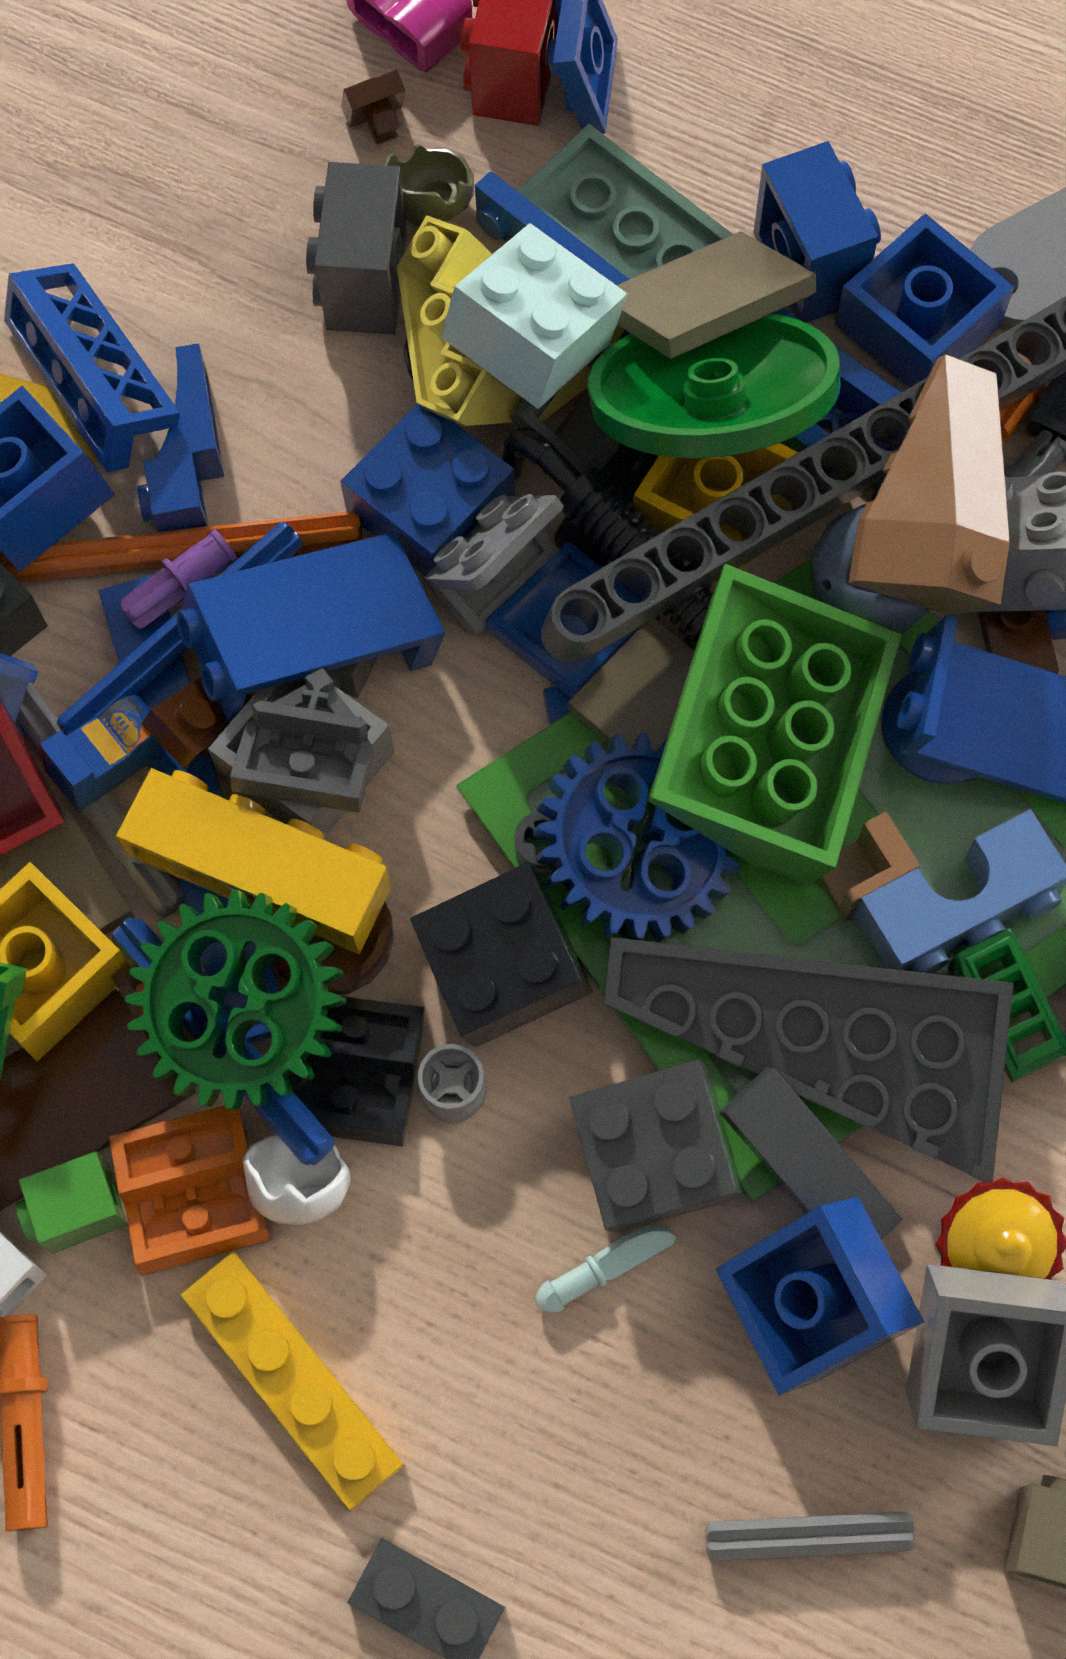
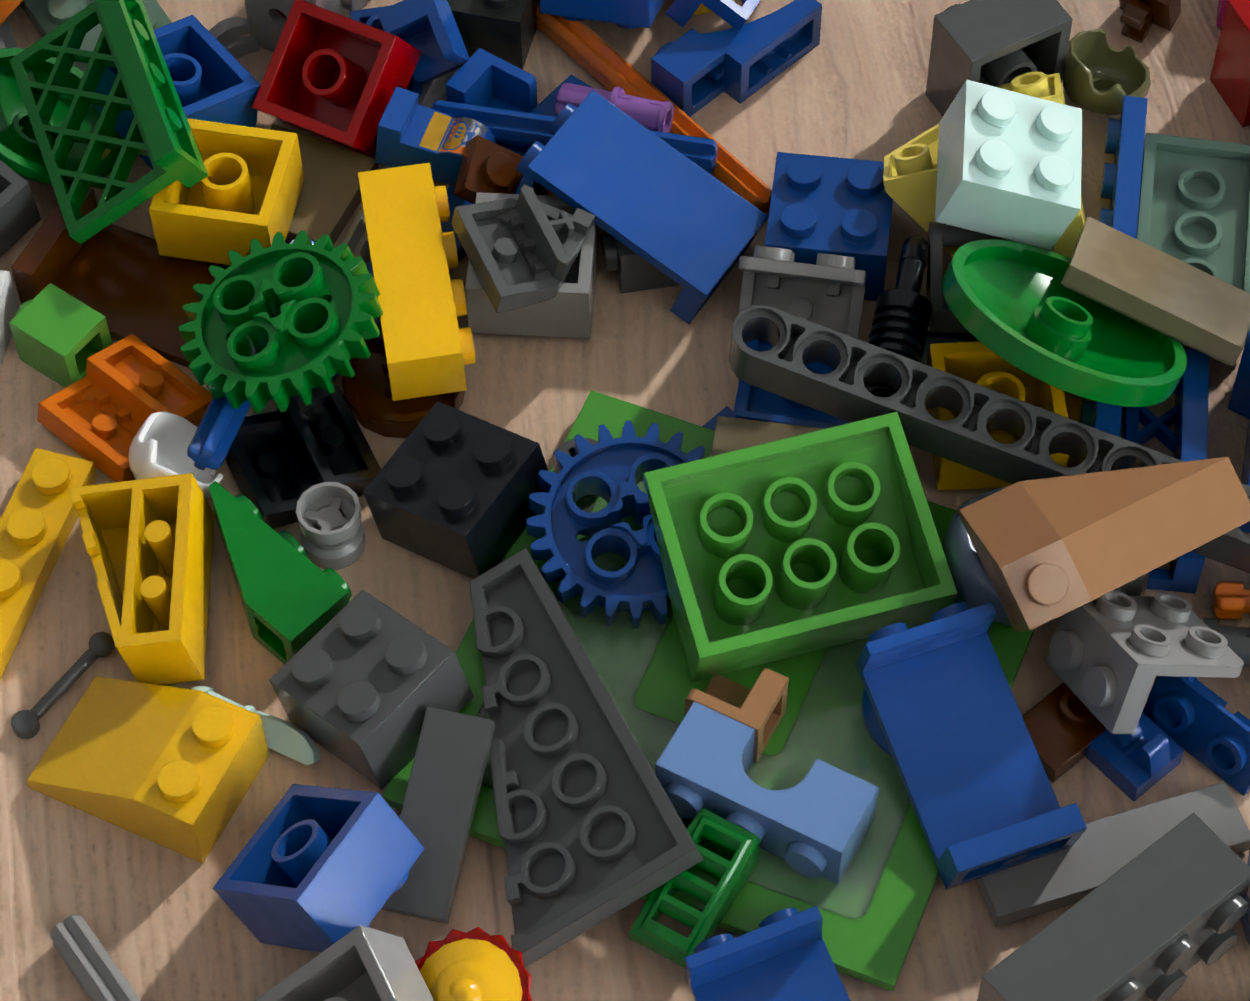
camera: 55 degrees right, 15 degrees down
(72, 664) = (492, 83): none -> blue panel
(405, 1267) = (152, 571): none -> yellow wedge
(469, 1463) = (26, 722): none -> dark grey hinge
(486, 1167) = (279, 587): none -> green slope
(587, 1377) = (155, 761): none -> yellow slope

